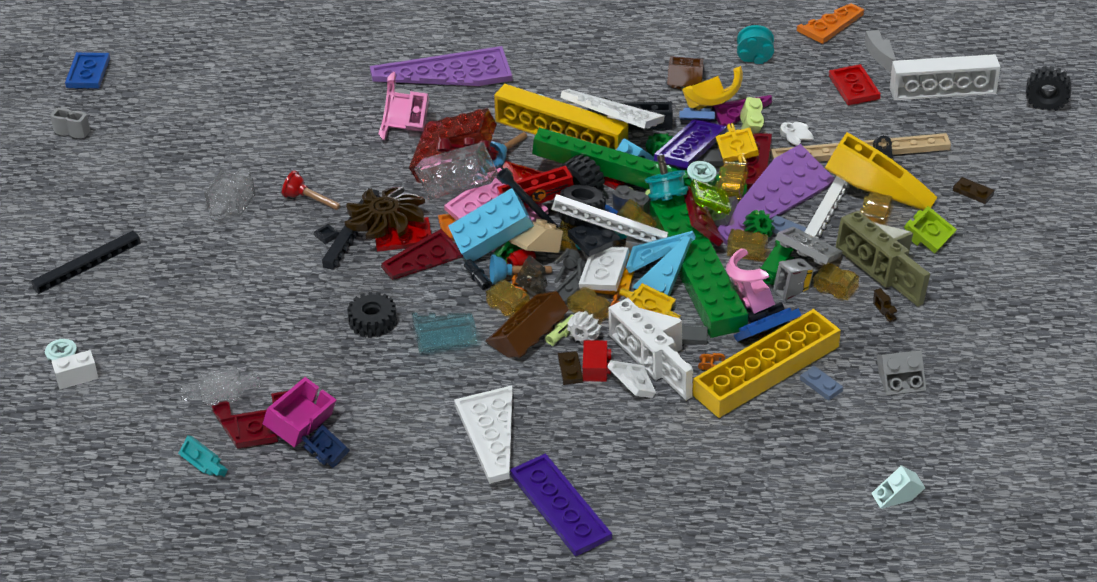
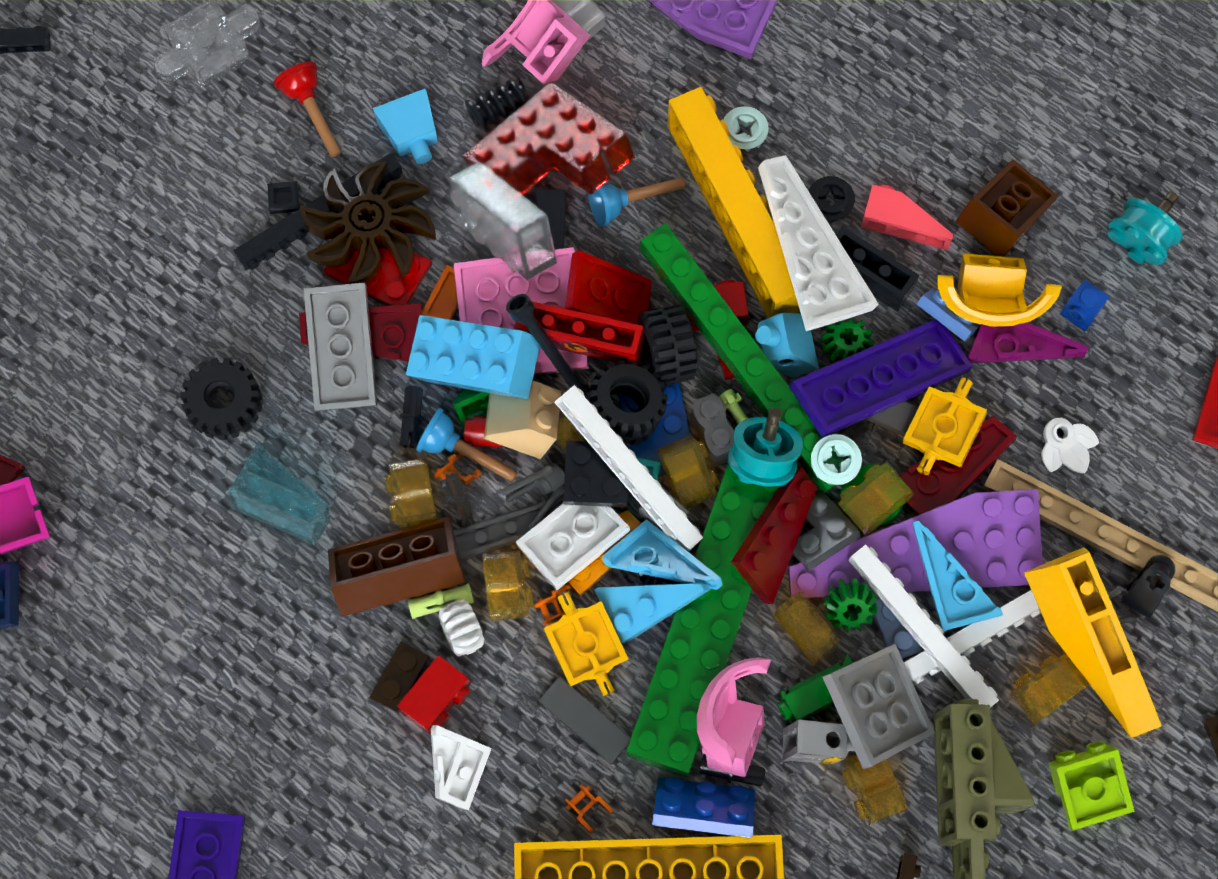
camera: 35 degrees right, 30 degrees up
(366, 175) = (408, 125): none -> medium azure torso
(404, 148) = (497, 105): none -> black piece
(416, 263) = (340, 347): none -> light grey plate
(444, 145) = (542, 192): dark red plant -> none
(488, 425) = (216, 704): white wing -> none
(644, 93) = (899, 216): none -> coral slope
(652, 342) = (518, 724): white wedge -> none
(710, 196) = (807, 520): clear neon green plate -> none
(751, 115) = (1019, 374): yellowish green brick -> none
(754, 82) = (1084, 305): none -> blue brick
(793, 213) = (920, 626): none -> white piece
(798, 195) = (954, 593): none -> medium azure wing

